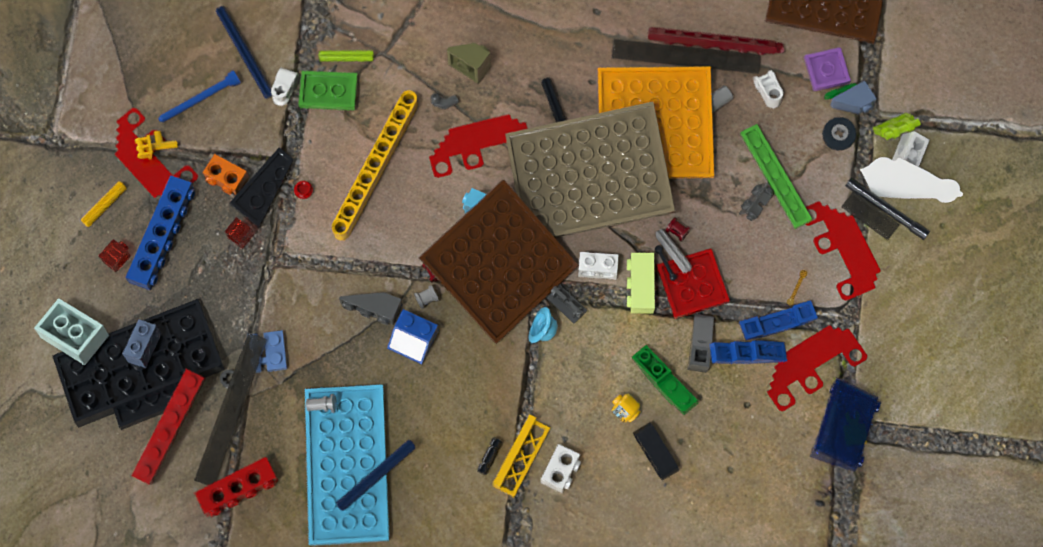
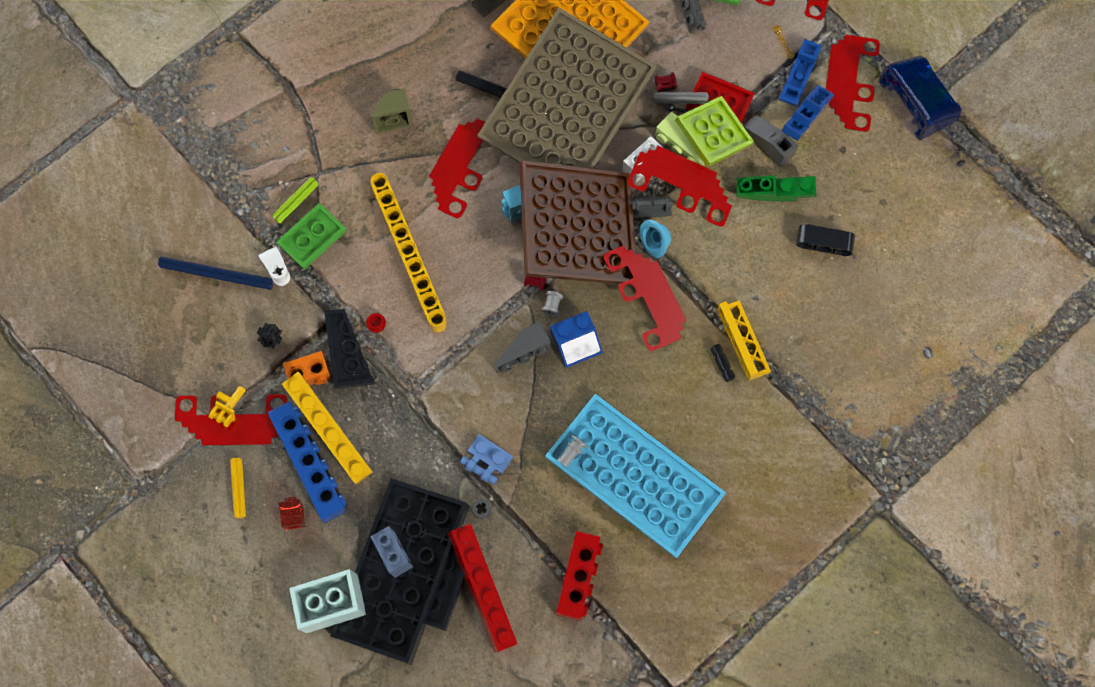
camera: 50 degrees left, 0 degrees up
(193, 224) = (327, 428): none -> yellow brick
(228, 127) = (269, 335): none -> black gear
(230, 80) = (229, 301): blue piece -> none
(230, 409) = (510, 528): clear smoke tile -> none
(239, 233) = (366, 400): clear red brick -> none
(375, 475) = (666, 459): dark blue axle -> none
(442, 103) = (405, 162): dark grey arm -> none
(501, 362) = (654, 288): none -> red piece
(557, 467) = (774, 320): white brick -> none
(612, 305) = (688, 175): none -> red piece
(626, 408) = (773, 232): yellow head -> none
(664, 296) = (714, 131): none -> lime plate

